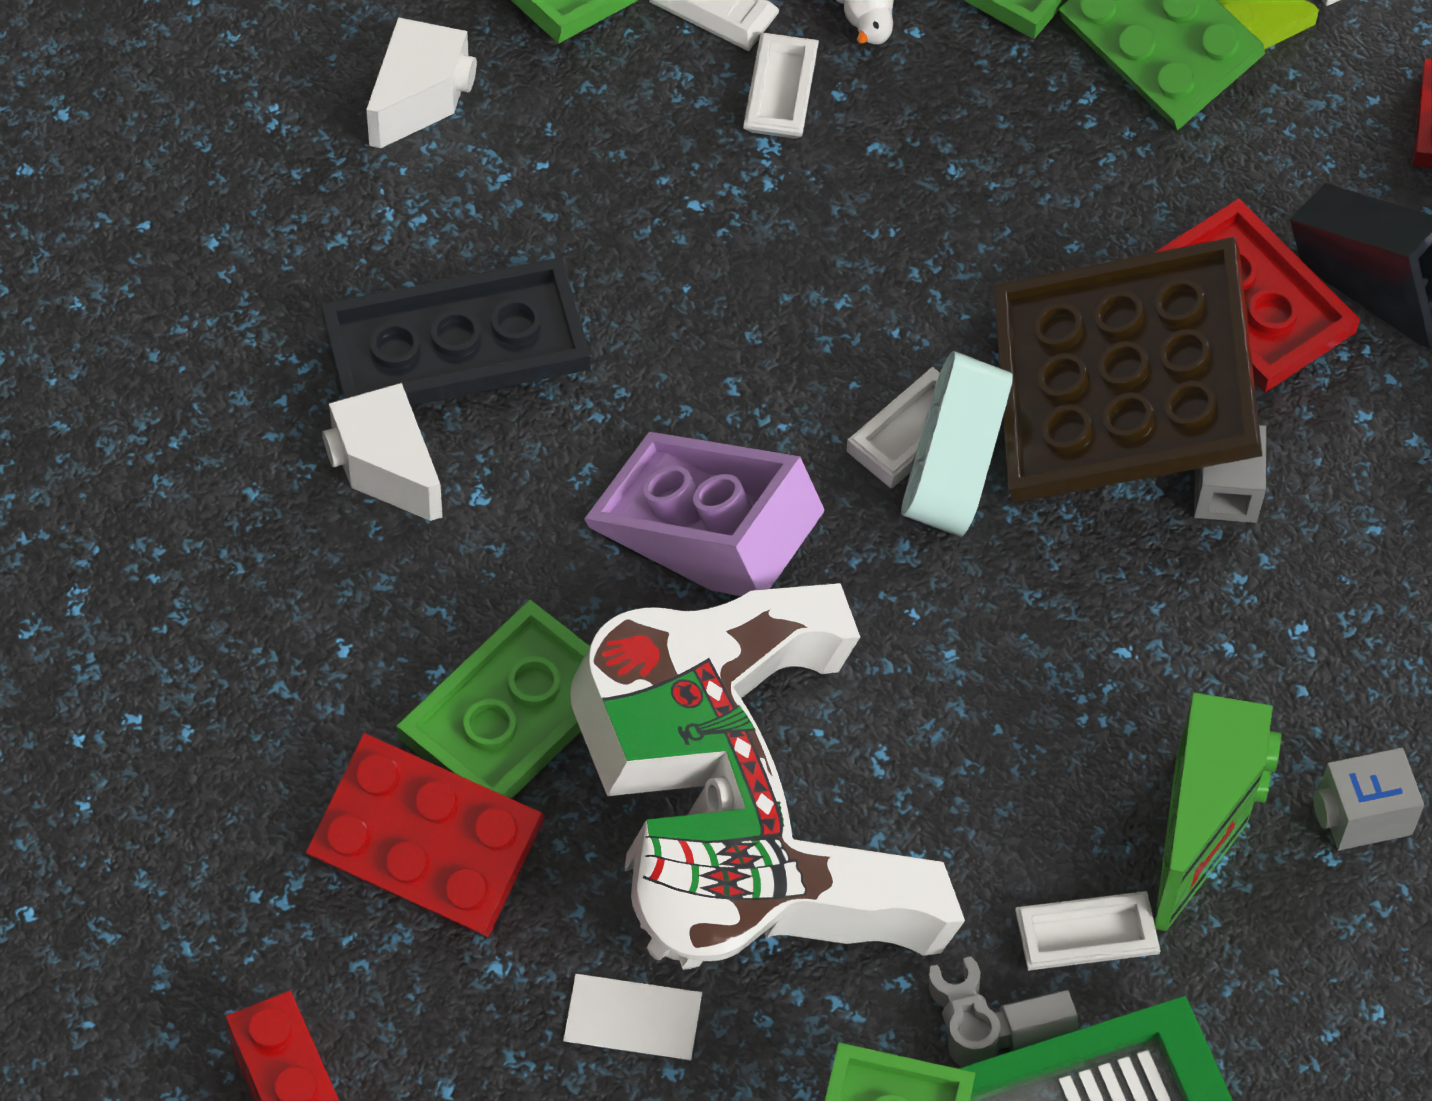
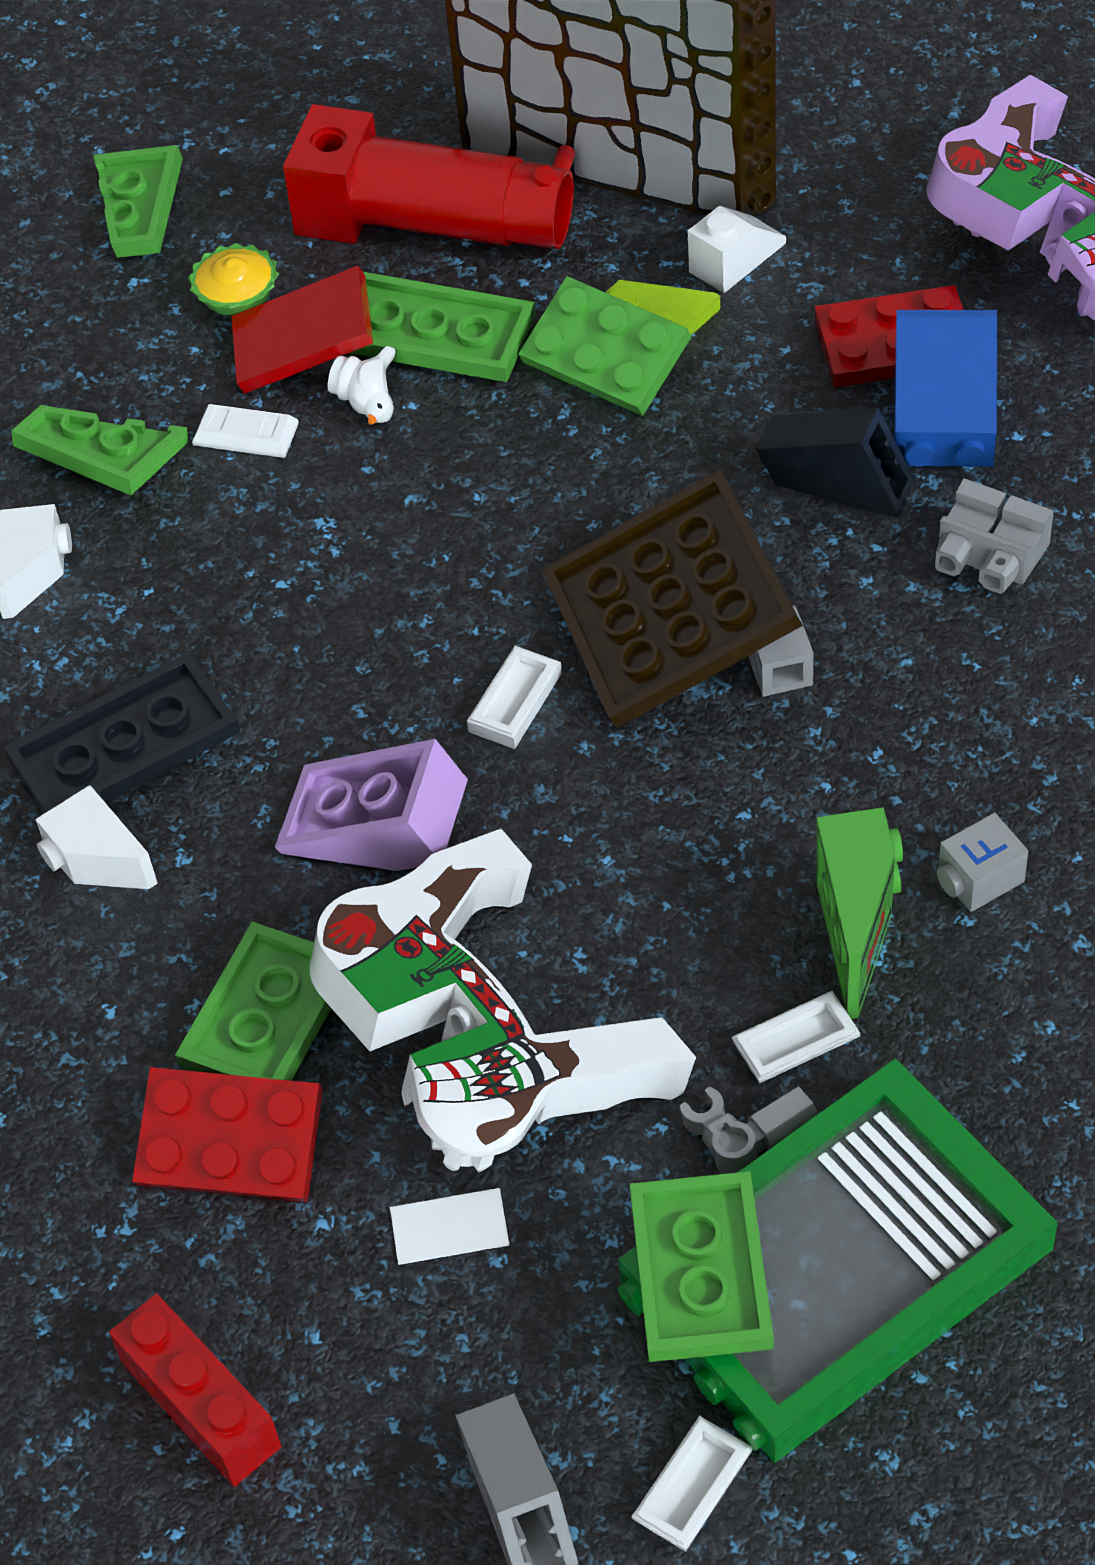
camera: 10 degrees left, 5 degrees down
(781, 85) = (319, 474): white tile -> none
(956, 444) = (556, 695): light aqua beam -> none
(1287, 305) = (782, 516): red plate -> none

